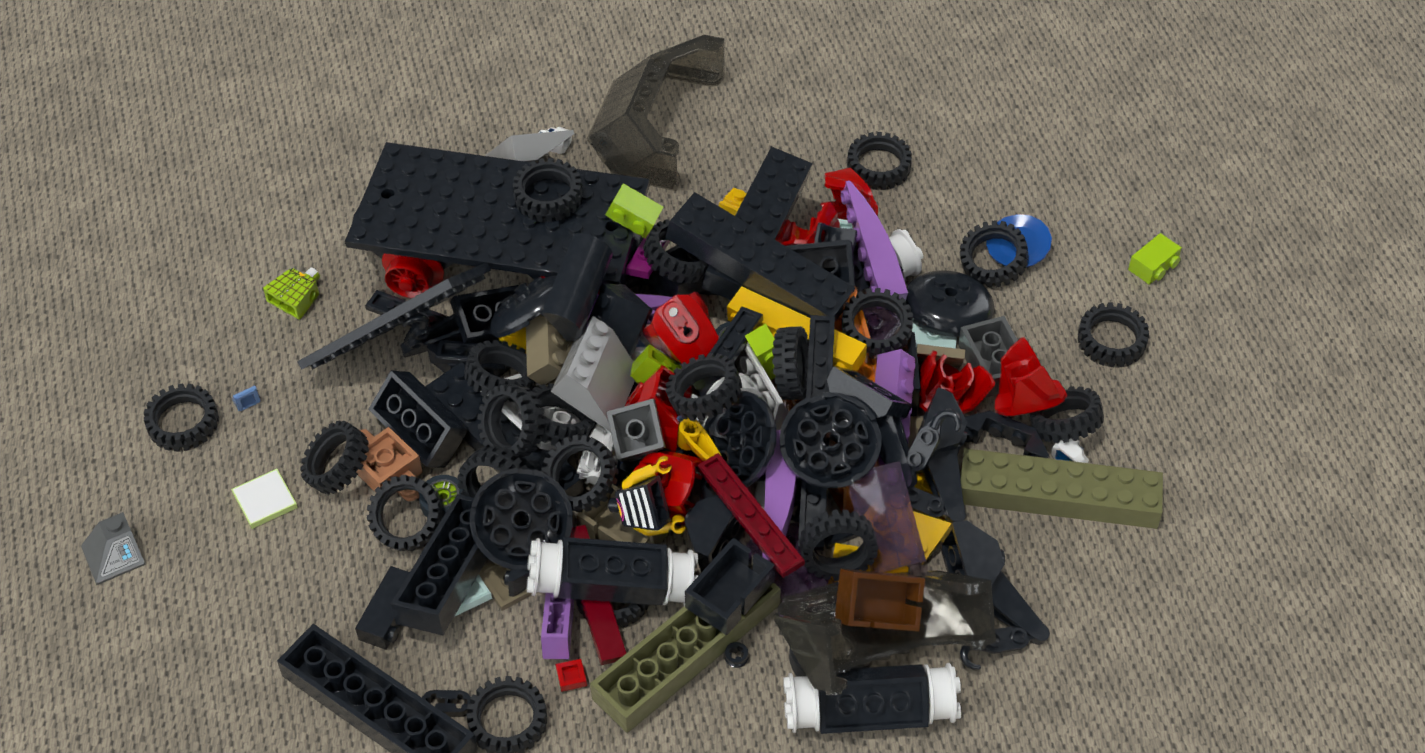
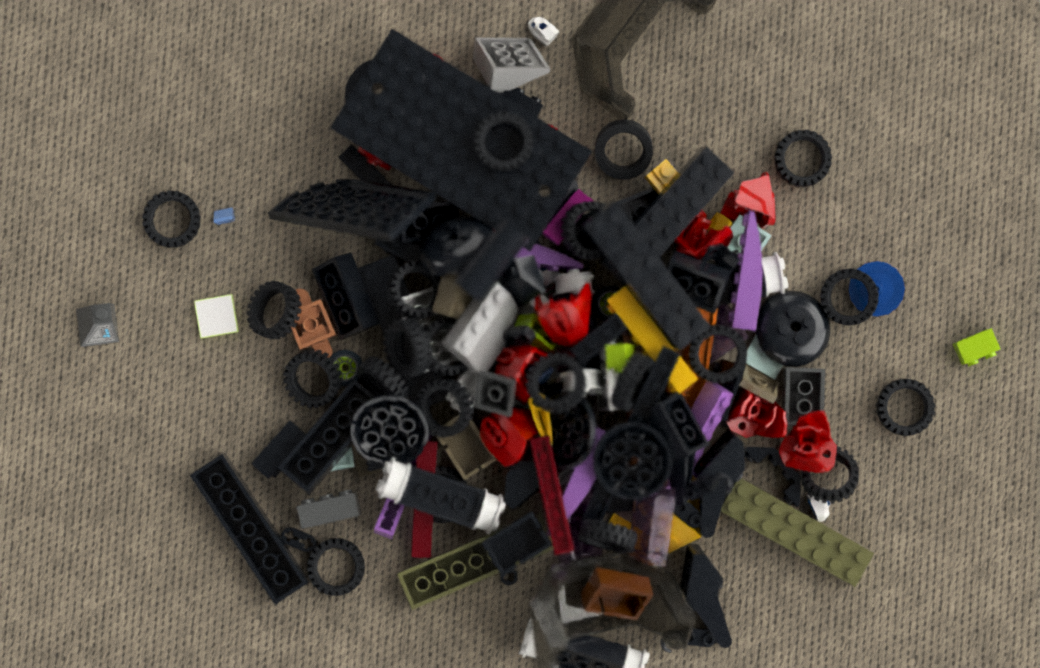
camera: 20 degrees right, 35 degrees up
(293, 291) = (286, 123): lime torso -> none
(475, 645) = (328, 509): none -> dark grey brick
(571, 675) = (389, 550): red plate -> none
(634, 211) = (564, 192): lime brick -> none
(637, 366) = (519, 335): none -> black beam
(644, 503) = (481, 453): torso -> none
(683, 173) = (629, 171): none -> black tyre

